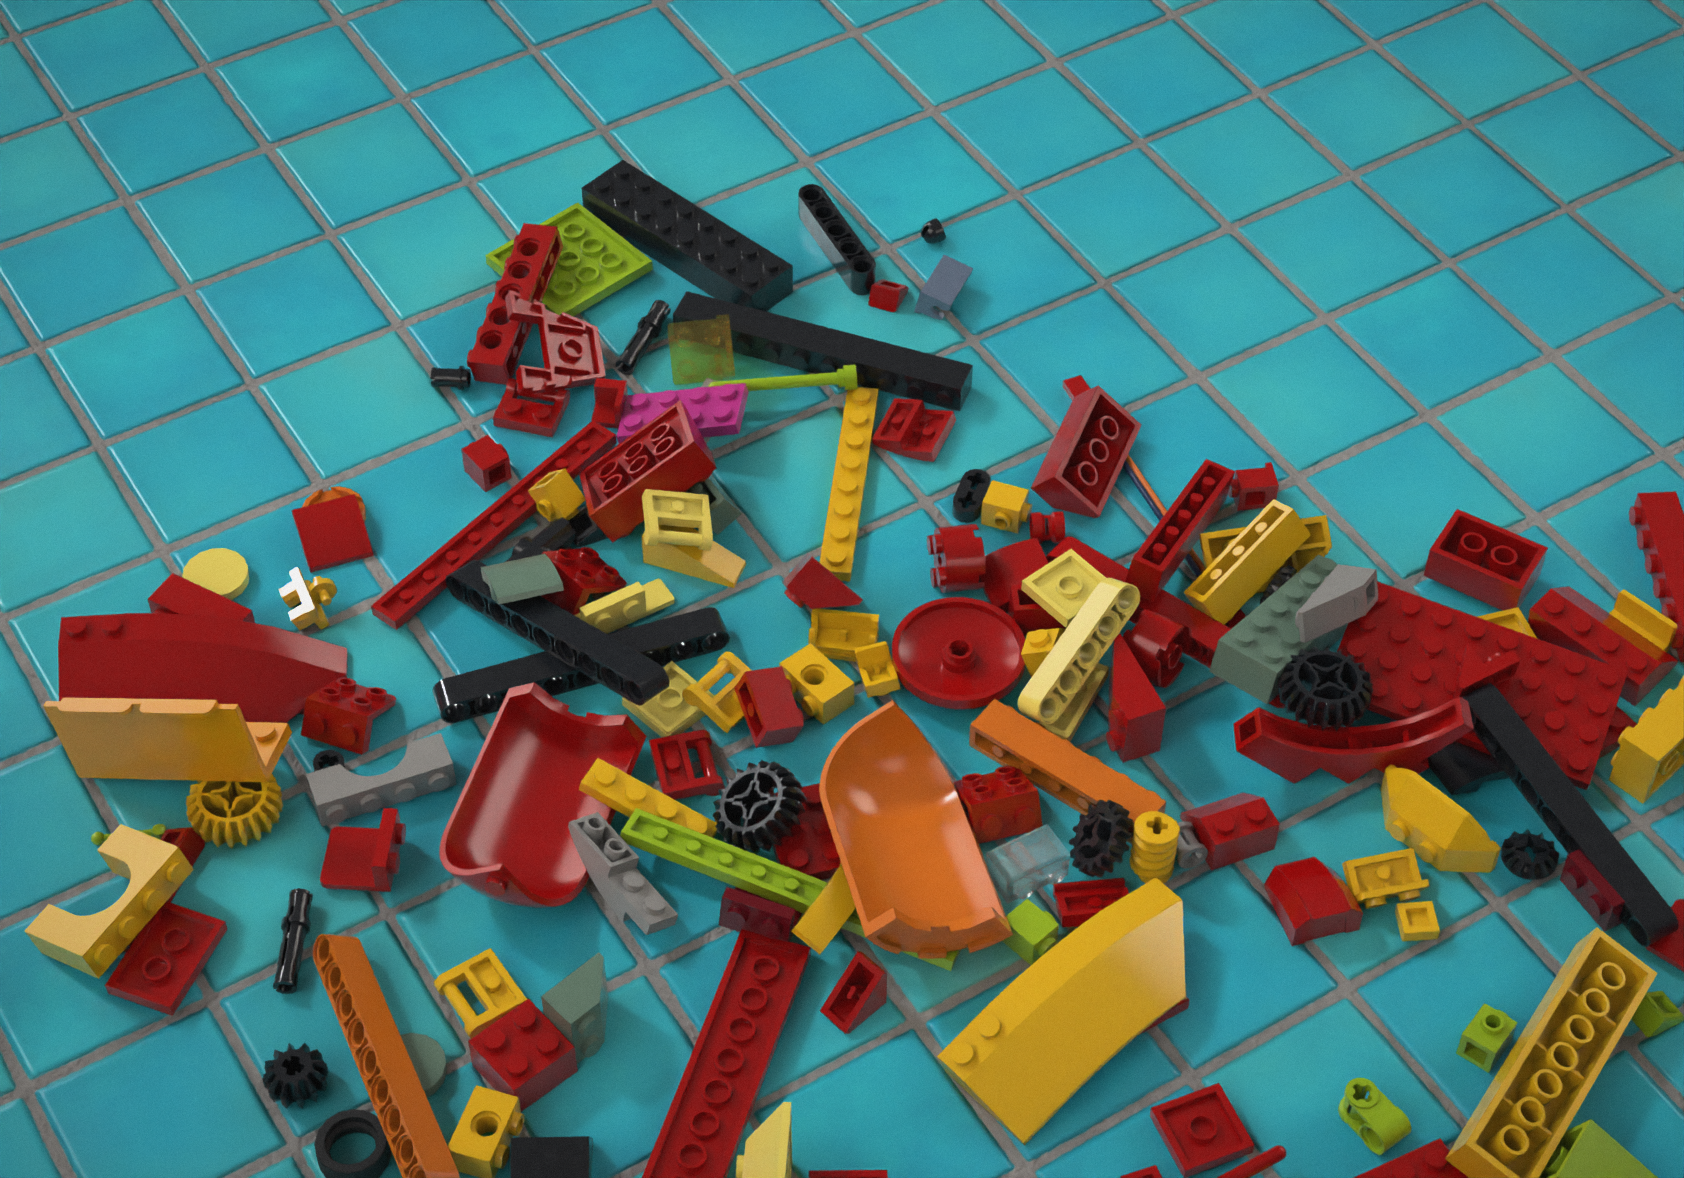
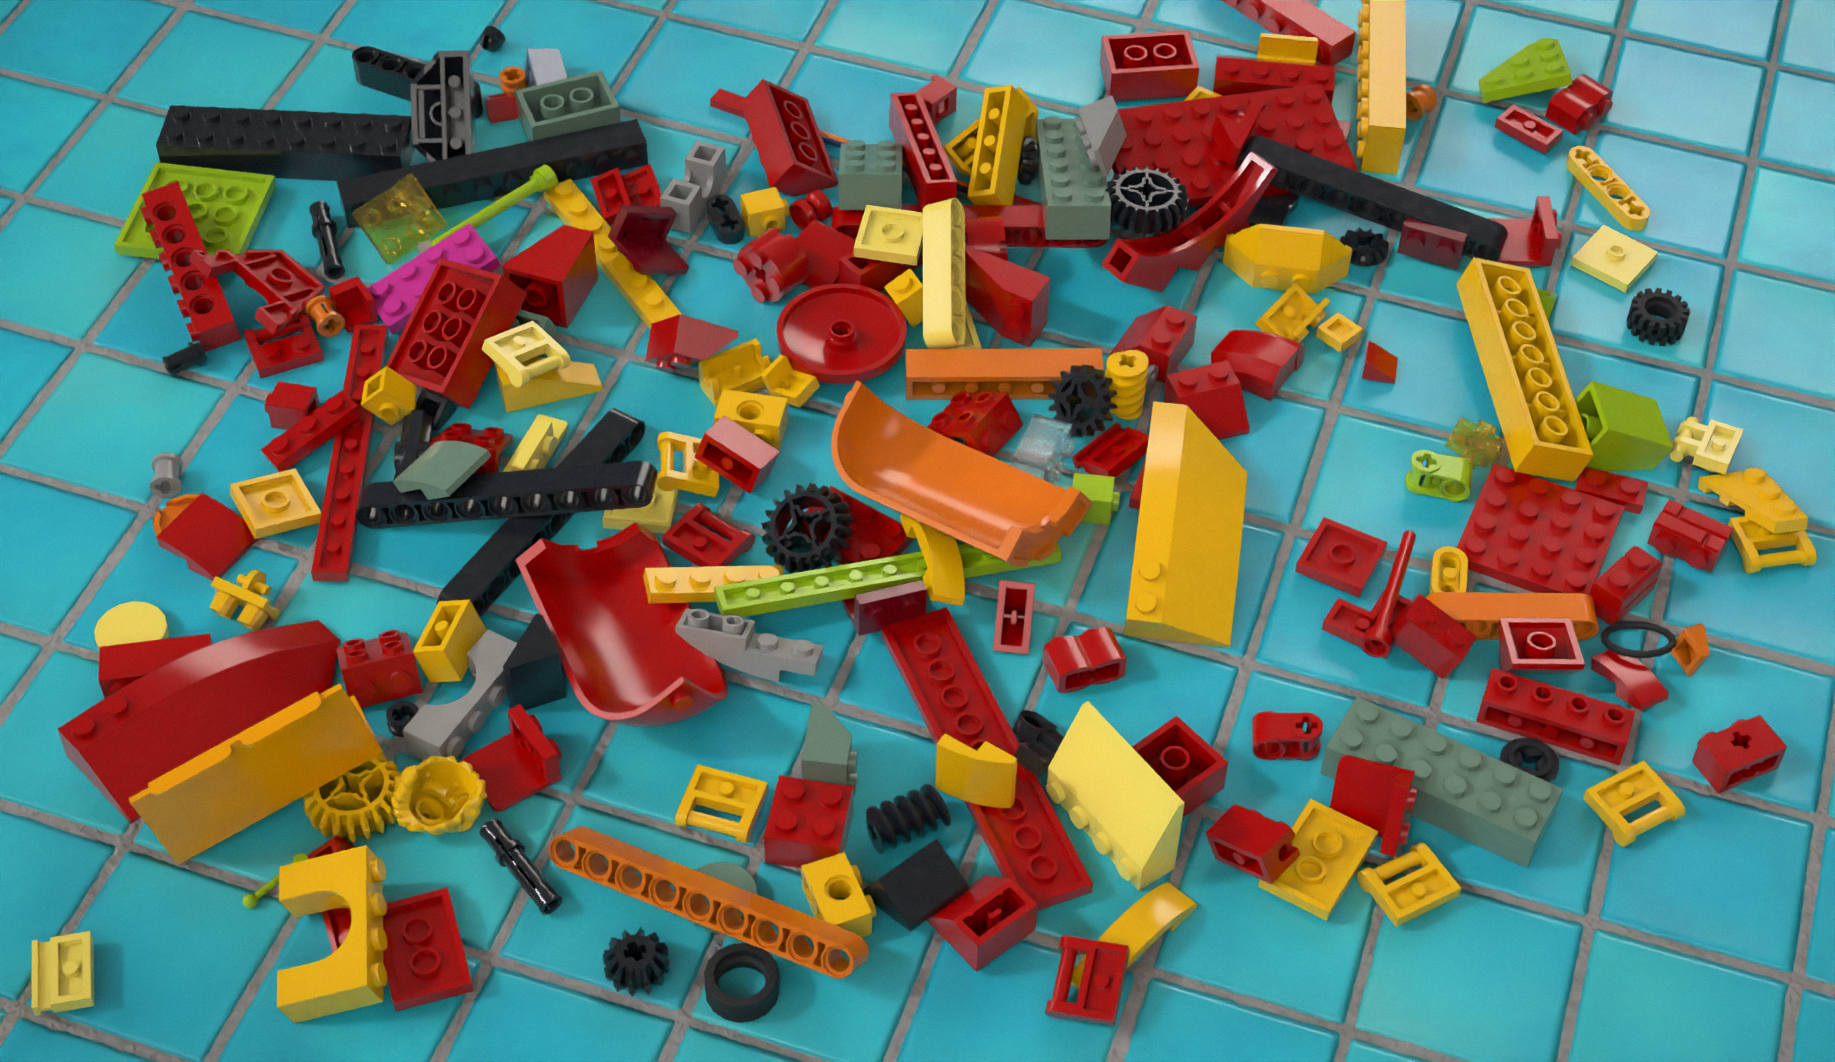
camera: 40 degrees left, 0 degrees up
(284, 841) = (438, 796): none -> yellow hair
(350, 464) = (165, 479): none -> light grey bush
(399, 534) = (275, 503): none -> yellow plate
(407, 721) = (448, 639): none -> yellow brick
(438, 783) = (534, 668): none -> black slope
(478, 491) = (311, 431): none -> red plate
(576, 400) = (325, 316): none -> orange bush
(600, 1105) = (906, 815): none -> black piece
(670, 1103) = (976, 776): none -> yellow slope
(747, 1121) = (1039, 743): none -> black piece
(774, 466) = (556, 273): none -> red slope
(824, 274) = (444, 107): none -> black wedge
(878, 479) = (642, 236): none -> dark red bracket
(879, 1069) = (1084, 659): none -> red brick
(912, 276) = (512, 79): none -> orange bush
(927, 324) = (566, 106): none -> sand green brick
(986, 445) = (703, 176): none -> light grey arch
(1112, 524) = (870, 175): none -> sand green brick
(1220, 910) = (1213, 397): none -> red slope
(1427, 974) = (1379, 364): none -> red slope
(1434, 1106) = (1465, 440): none -> clear yellow brick
(1486, 1037) = (1459, 380): lime brick -> none

